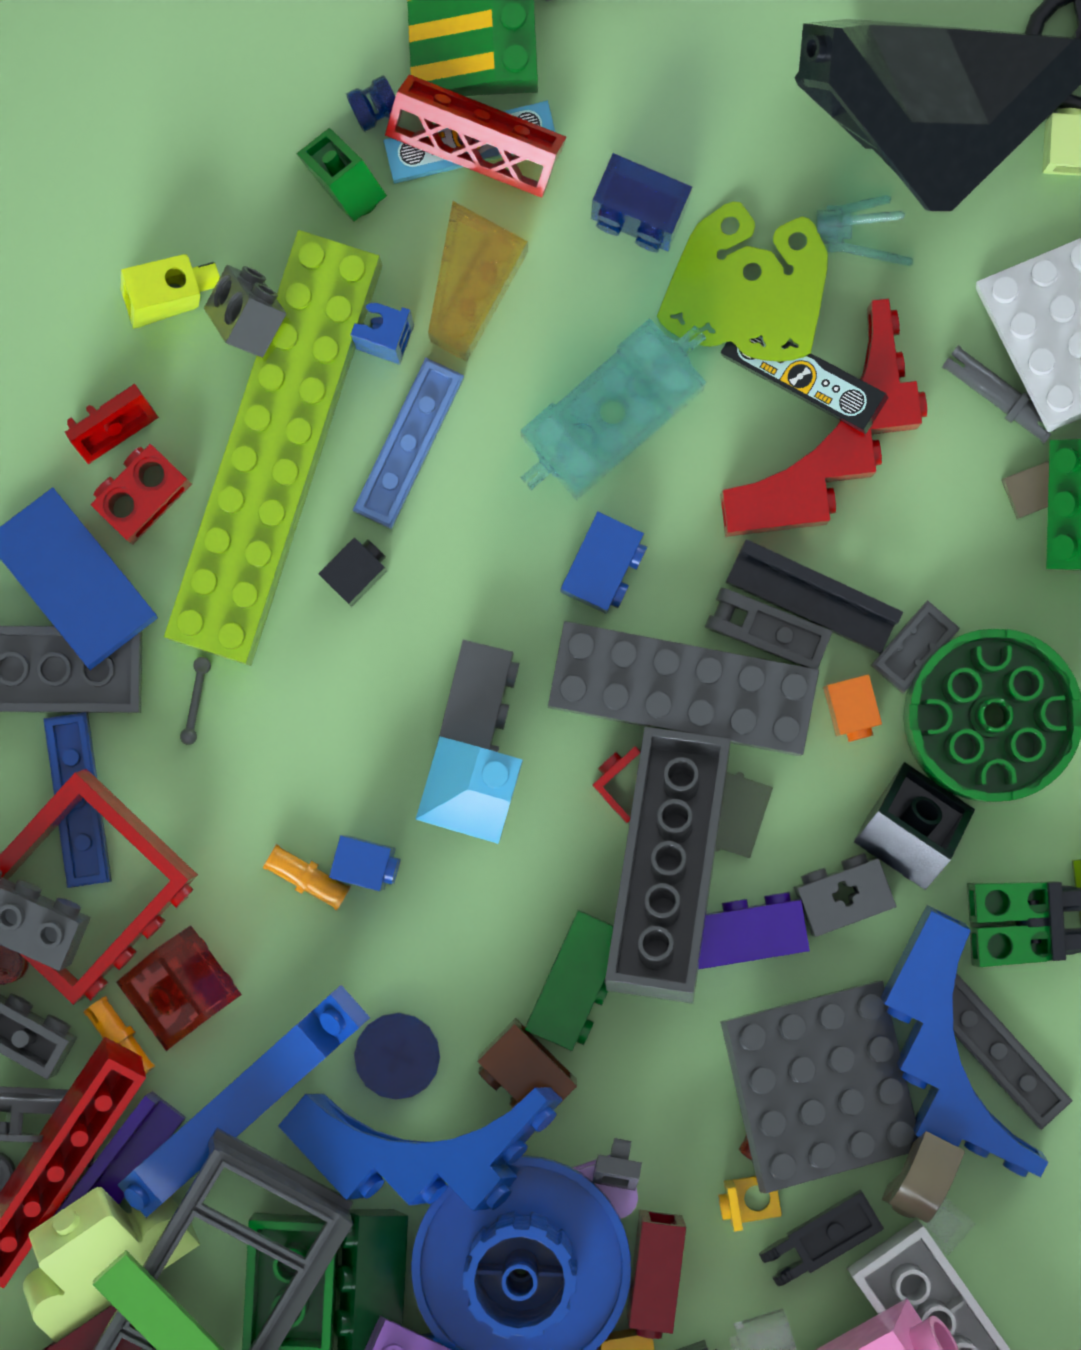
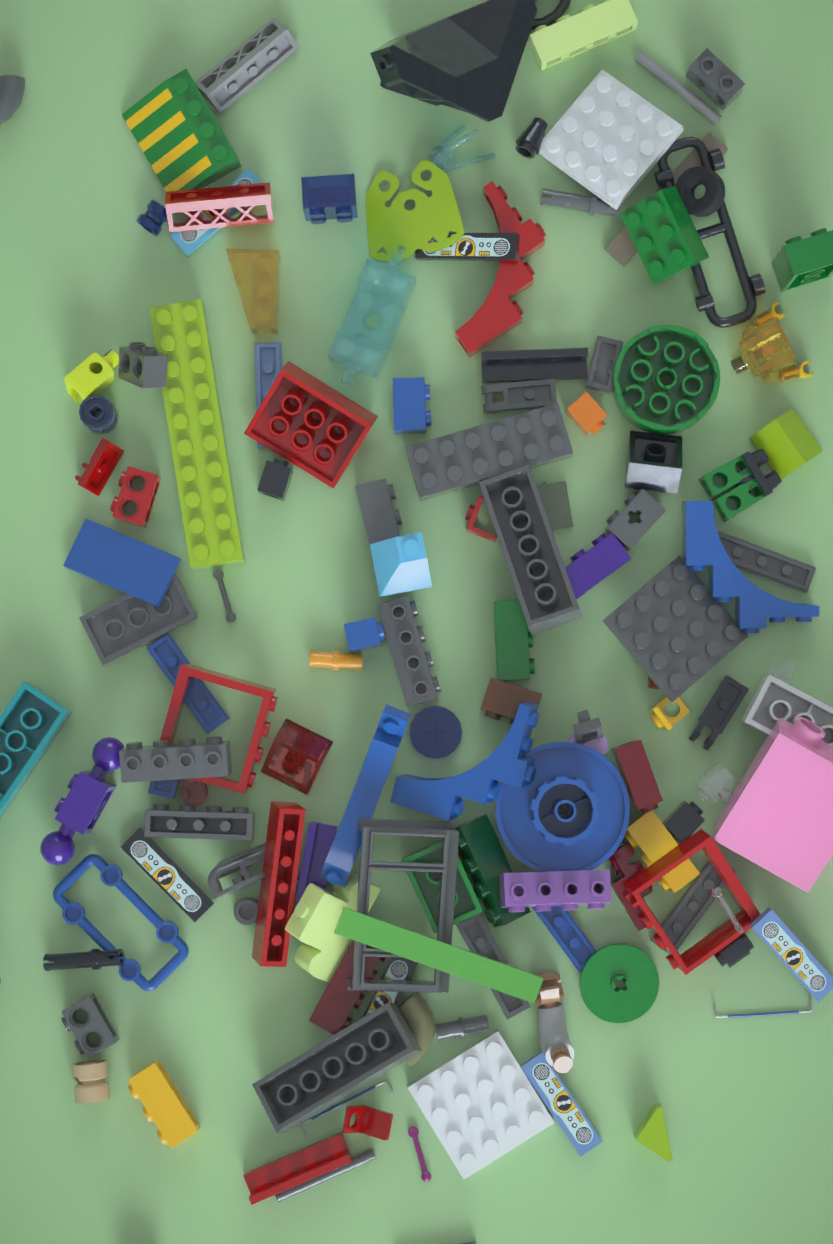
camera: 25 degrees left, 0 degrees up
(111, 1026) = (267, 795): light orange pin -> none
(147, 346) = (98, 414): none -> dark blue wheel
(342, 174) = (157, 265): green slope -> none
(389, 333) = (227, 342): blue hinge -> none
(416, 919) = (407, 651): none -> dark grey brick
(445, 517) = (310, 424): none -> red slope
(924, 1178) = (756, 649): dark tan brick -> none
(975, 267) = (531, 139): none -> black cone

